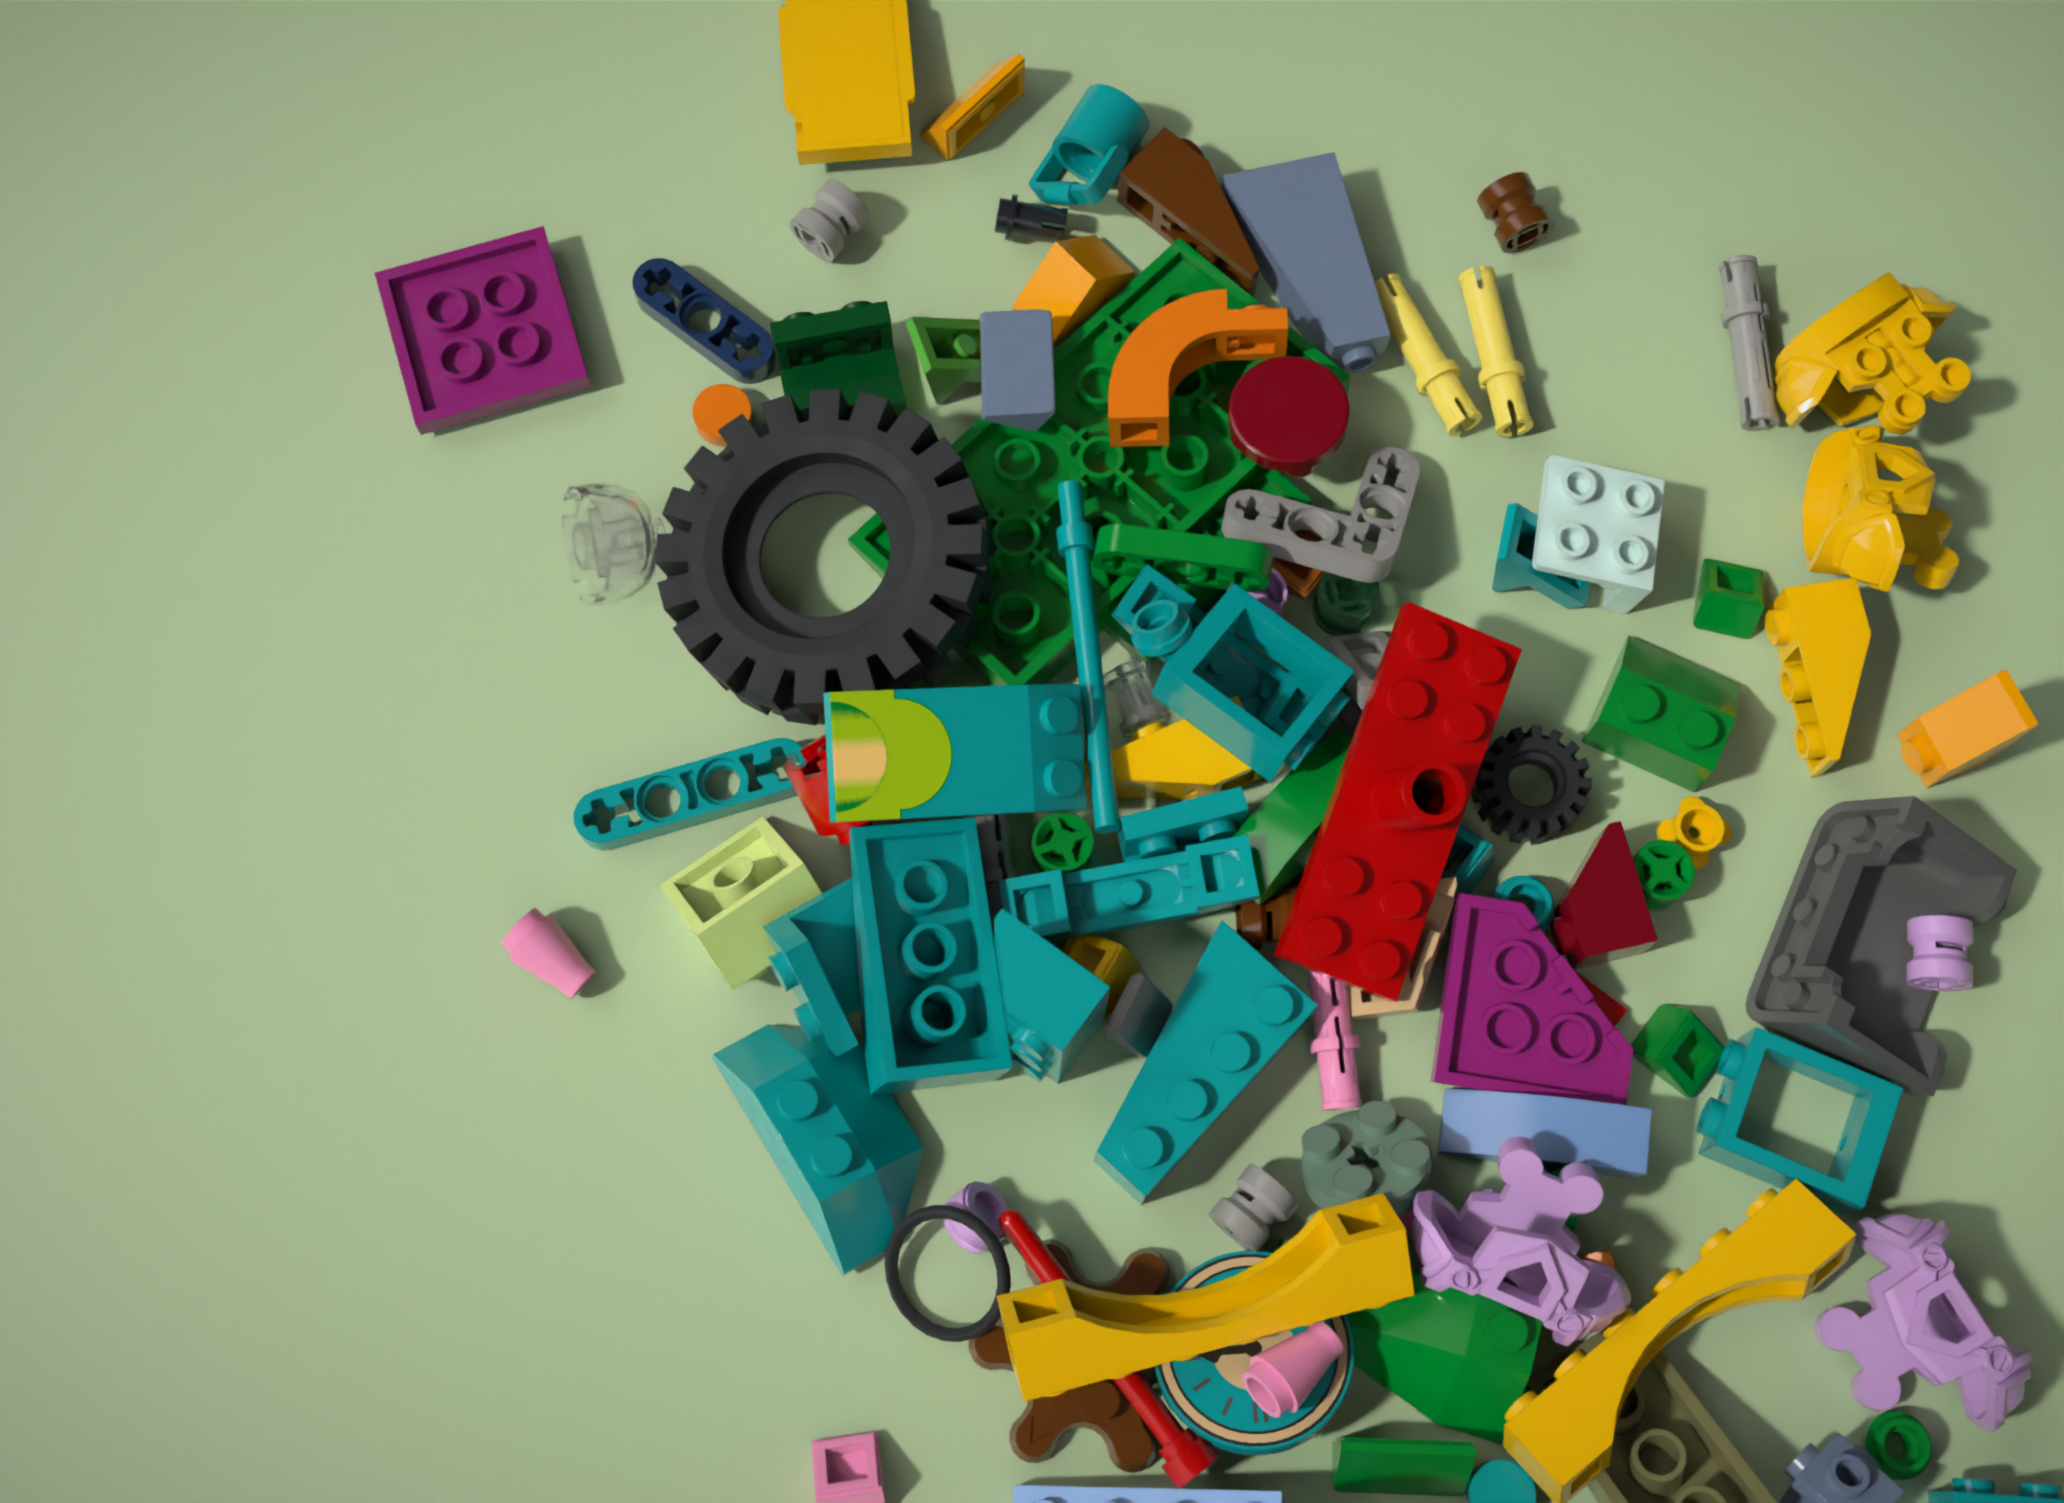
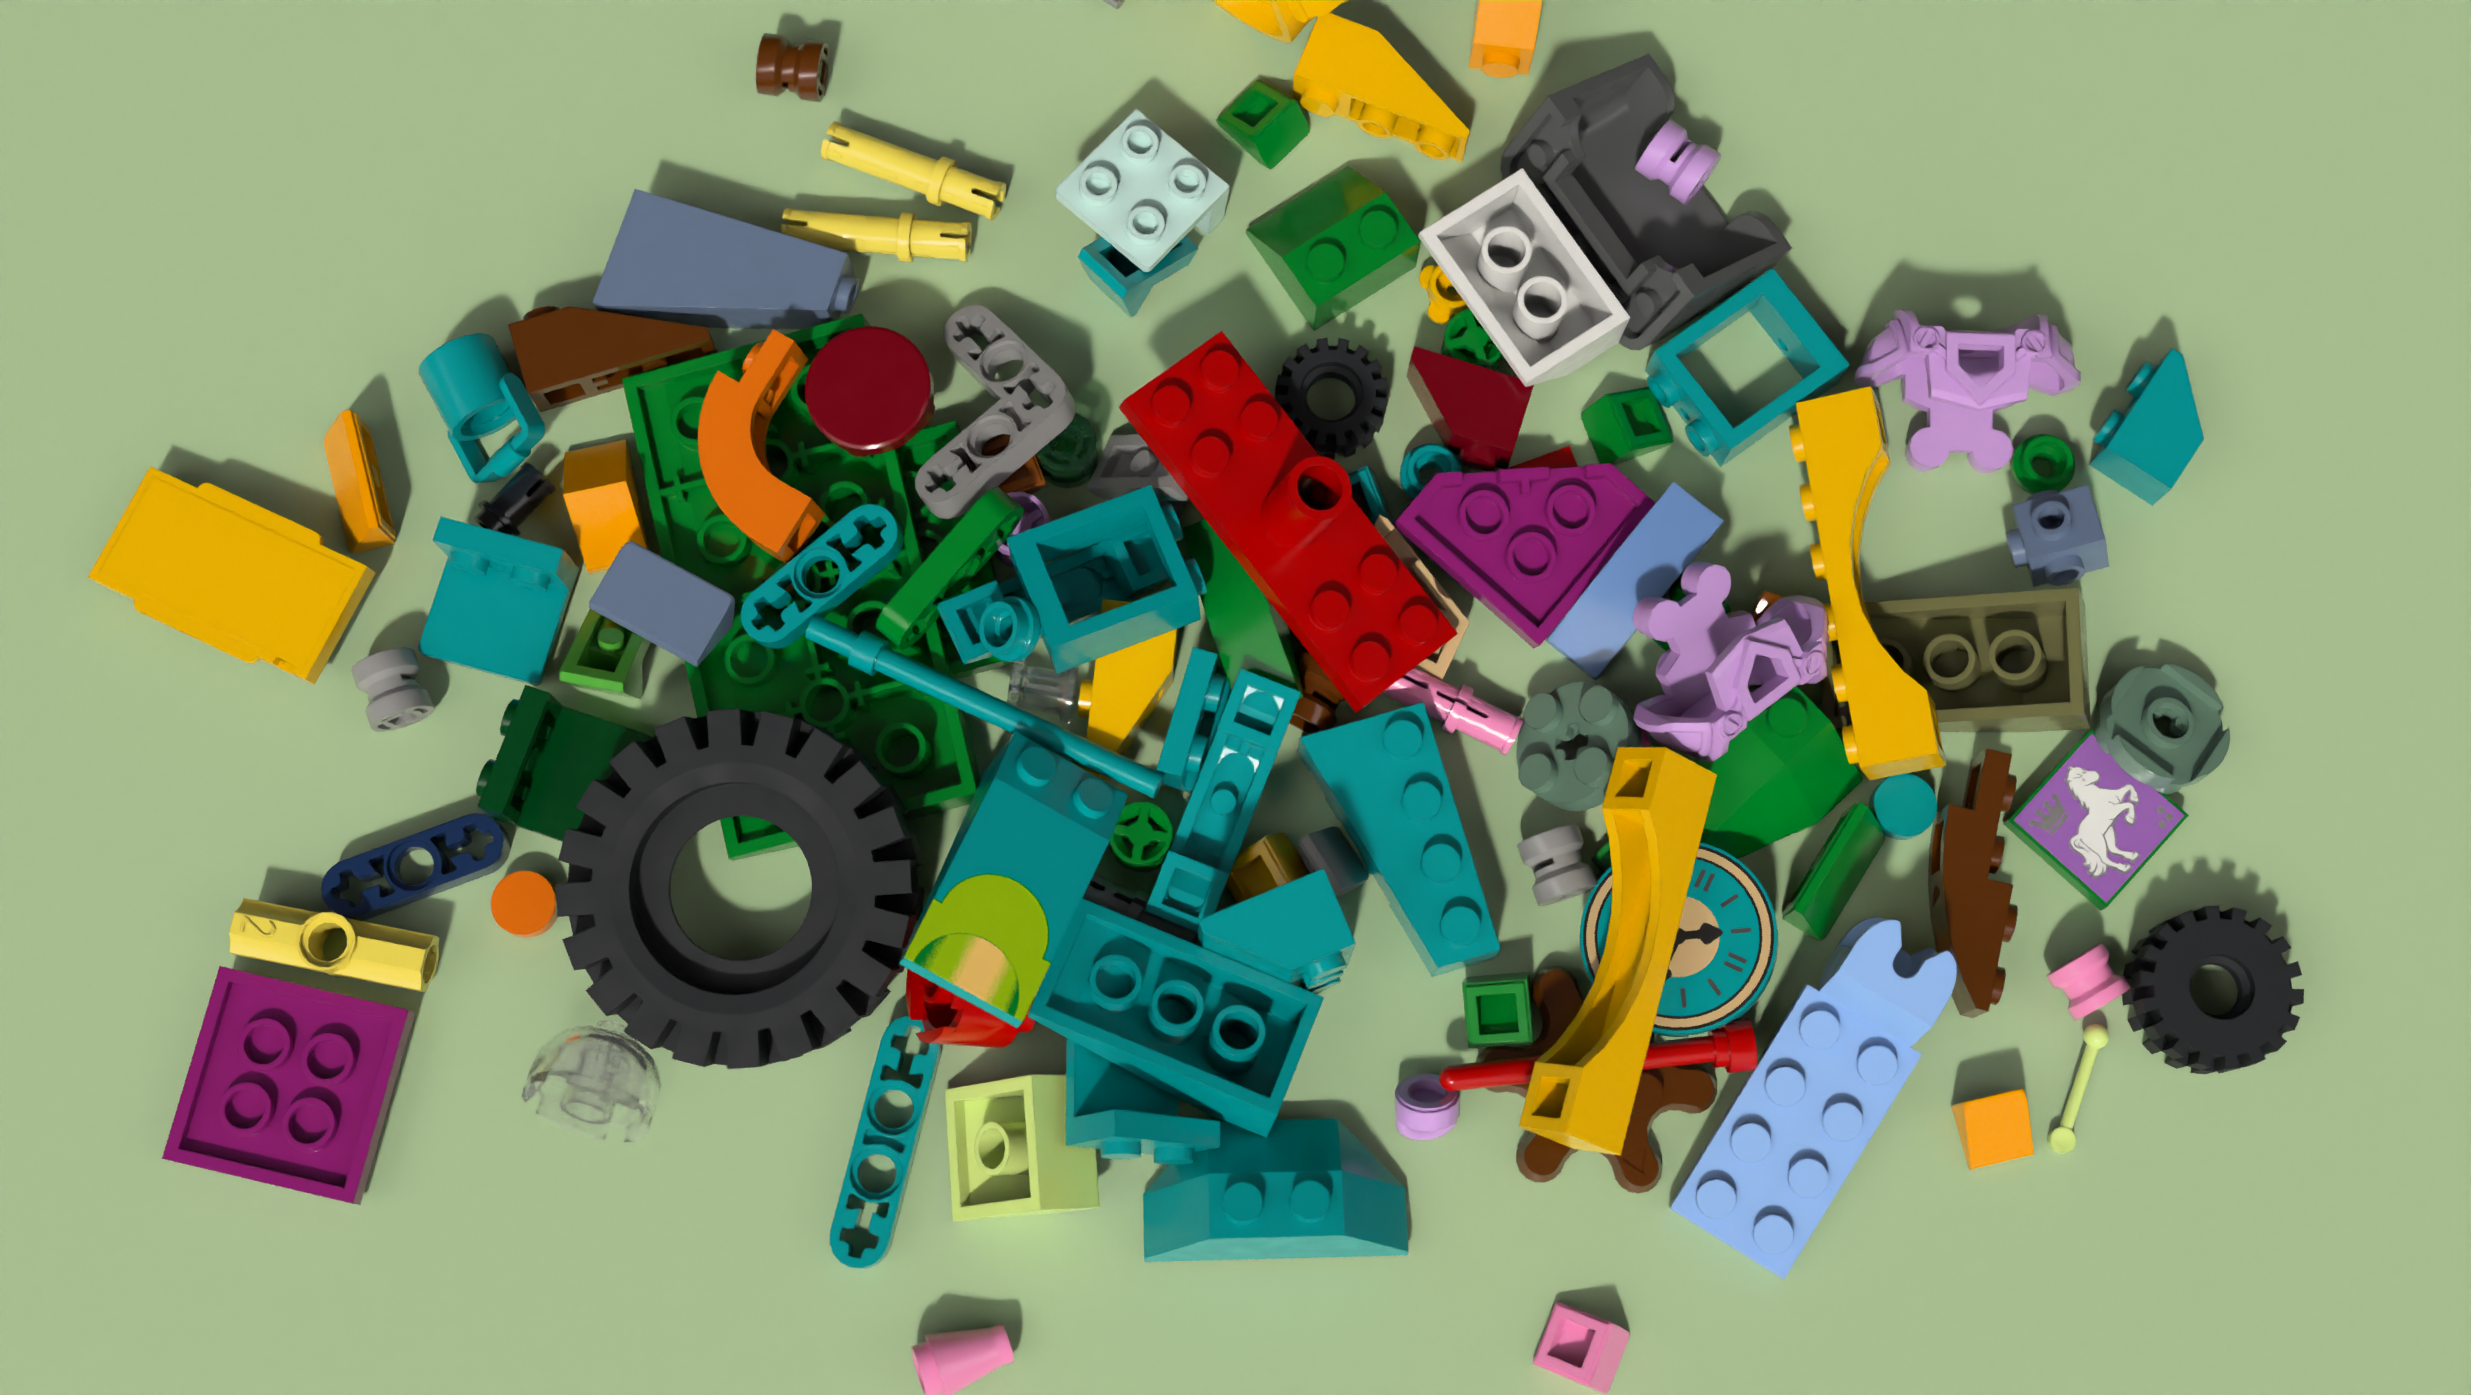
camera: 60 degrees left, 5 degrees up
(615, 322) = (298, 935): none -> light yellow piece
(896, 1290) = (1448, 1107): black tyre -> none
(945, 253) = (497, 602): none -> teal bracket
(1097, 1231) = (1498, 1010): none -> green slope
(1127, 492) = (795, 572): none -> teal beam
(1291, 1369) = (1718, 915): bright pink cone -> none
(1740, 882) = (1526, 281): none -> white slope

